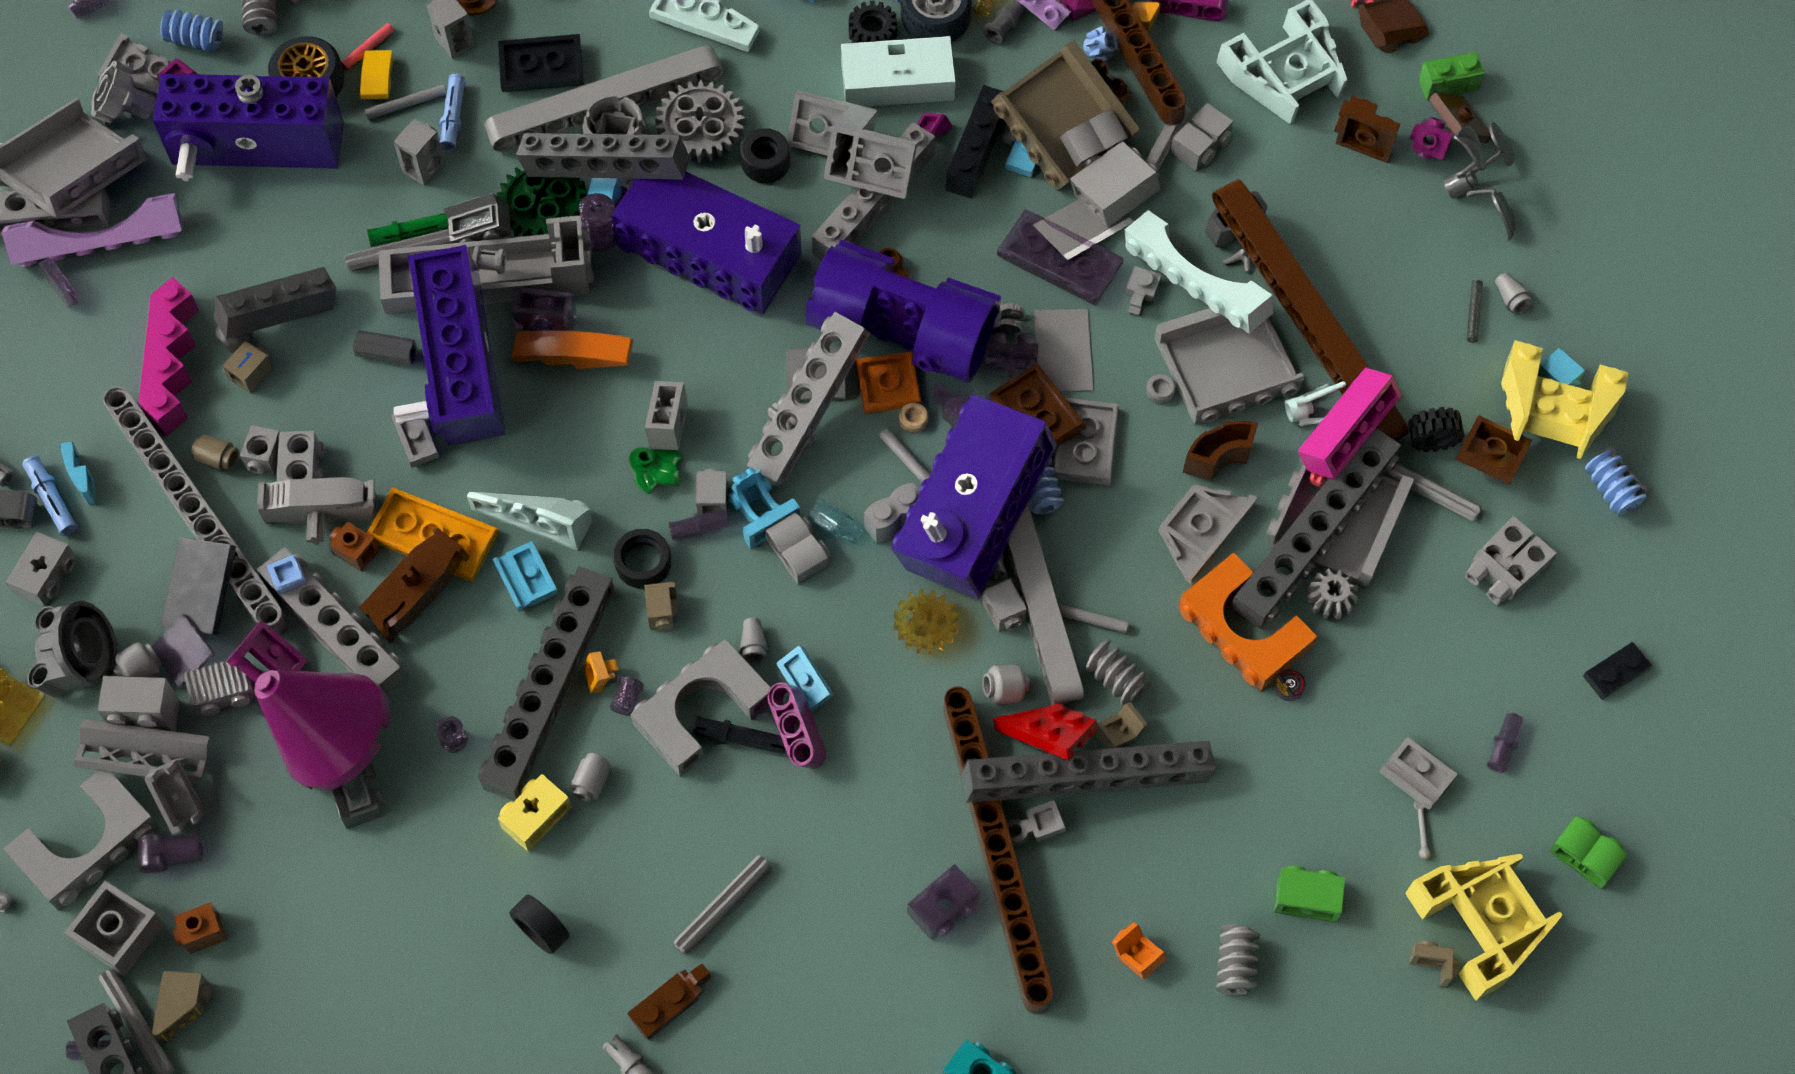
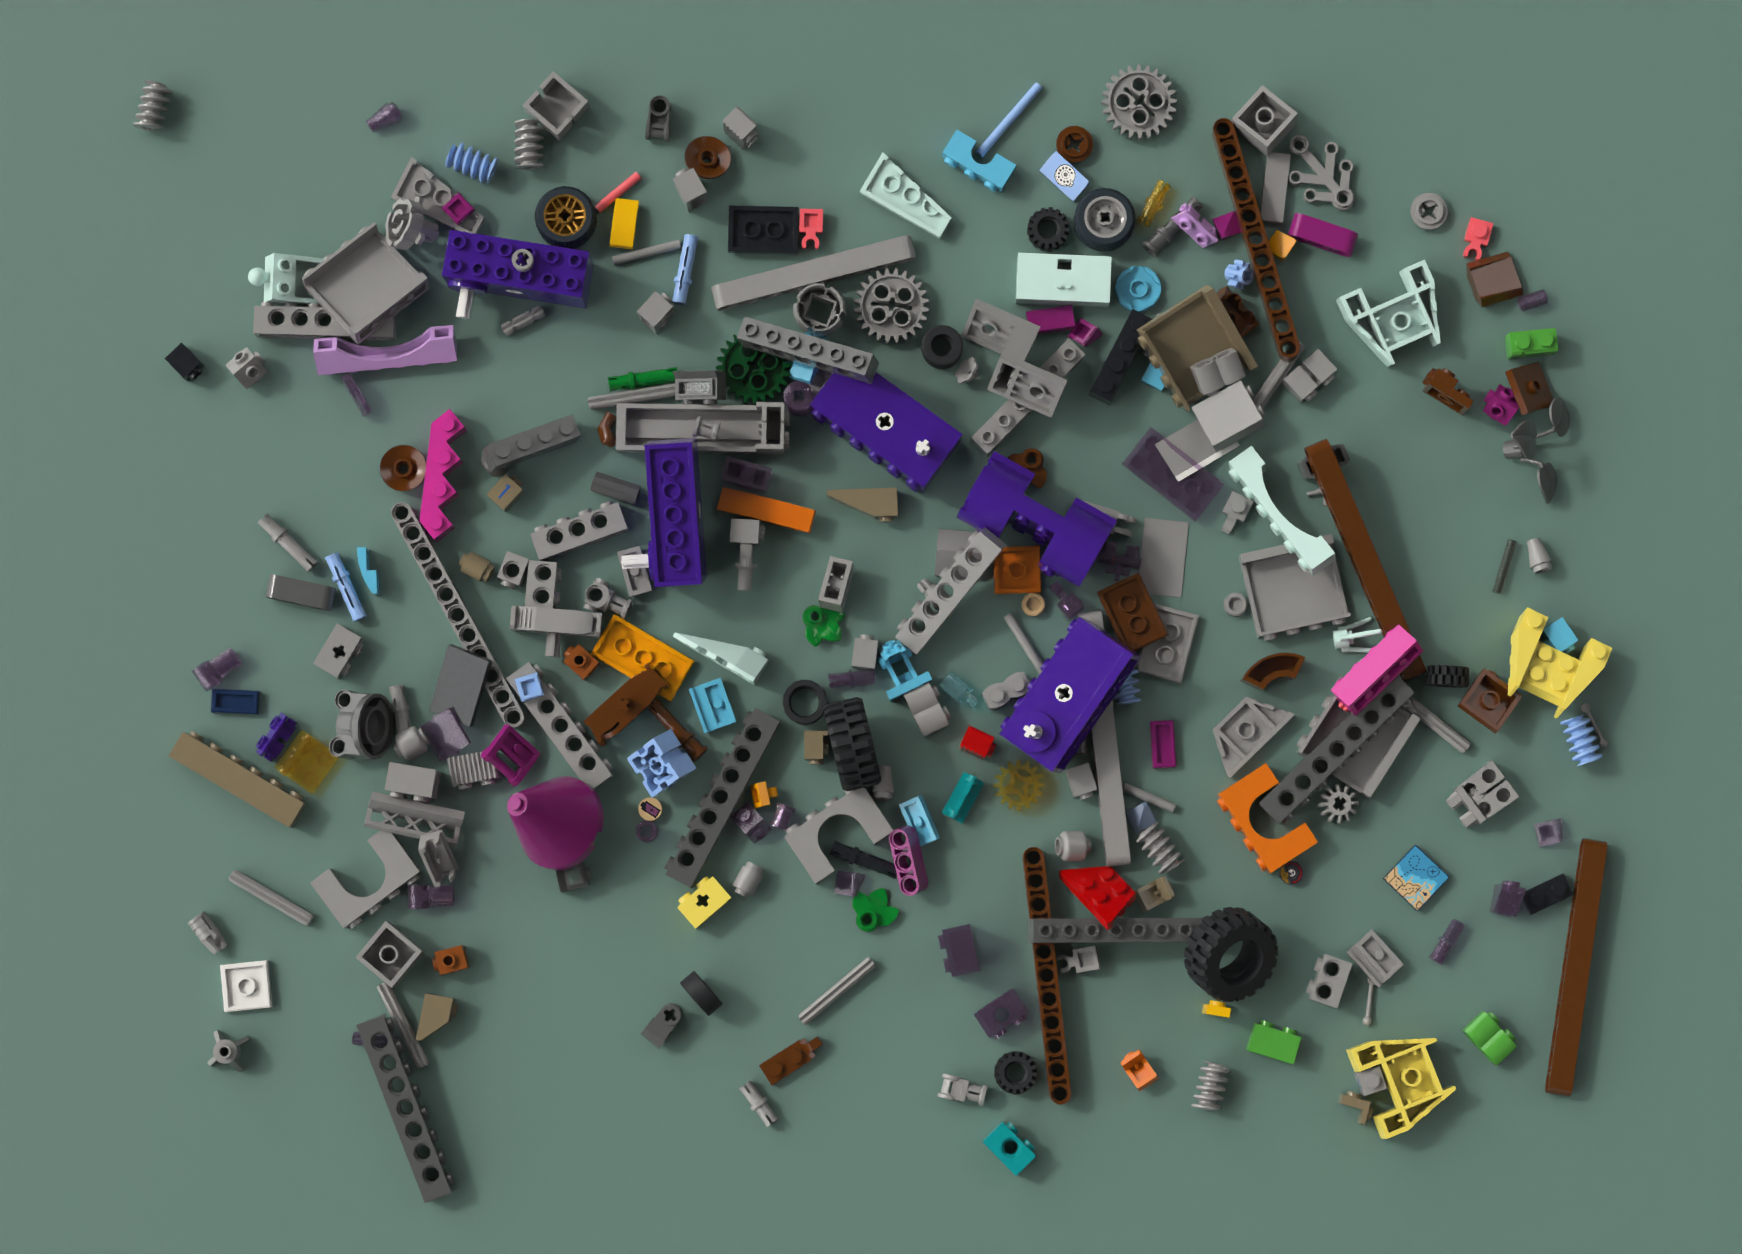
camera: 10 degrees right, 20 degrees up
(111, 347) = (395, 459): none -> reddish brown dish
(122, 625) = (400, 707): none -> light grey pin
(261, 186) = (523, 320): none -> light grey axle
(358, 402) = (615, 525): none -> light grey brick
(368, 289) = (604, 430): none -> reddish brown arm
(383, 469) = (607, 599): none -> light grey connector
(456, 706) = (650, 809): none -> tile
(463, 644) = (661, 763): none -> light blue brick
(489, 979) = (660, 1027): none -> dark grey piece
(492, 618) = (686, 738): none -> reddish brown pin
(549, 376) = (747, 534): none -> light grey brick
(588, 709) = (751, 823): none -> clear purple bracket
(596, 53) = (811, 223): none -> coral plate
(699, 326) = (873, 502): none -> dark tan slope
(706, 583) = (852, 744): none -> black tyre
(722, 767) = (848, 883): none -> slope
(758, 793) = (874, 906): none -> green plate
(798, 177) = (967, 370): none -> light grey plant
(857, 646) = (962, 797): none -> teal hinge
(866, 573) = (978, 743): none -> red brick
(878, 825) = (959, 950): none -> clear purple brick
(895, 115) = (1052, 319): none -> magenta tile
(904, 1009) = (960, 1089): none -> light grey connector
(980, 959) = (1011, 1058): none -> black tyre
(985, 70) = (1138, 288): none -> medium azure tile
(1085, 640) = (1140, 817): none -> sand blue slope
(1100, 555) = (1163, 744): none -> magenta tile
(1227, 856) = (1216, 1008): none -> yellow plate
(1265, 783) = (1248, 969): none -> black tyre
(1372, 808) = (1335, 983): none -> light grey brick
(1441, 38) = (1525, 304): none -> clear purple piece
(1446, 923) = (1370, 1080): none -> light grey brick
(1448, 671) = (1415, 877): none -> tile
(1571, 675) = (1507, 898): none -> clear purple slope
(1601, 597) = (1549, 832): none -> clear purple slope
(1678, 756) = (1576, 967): none -> reddish brown beam

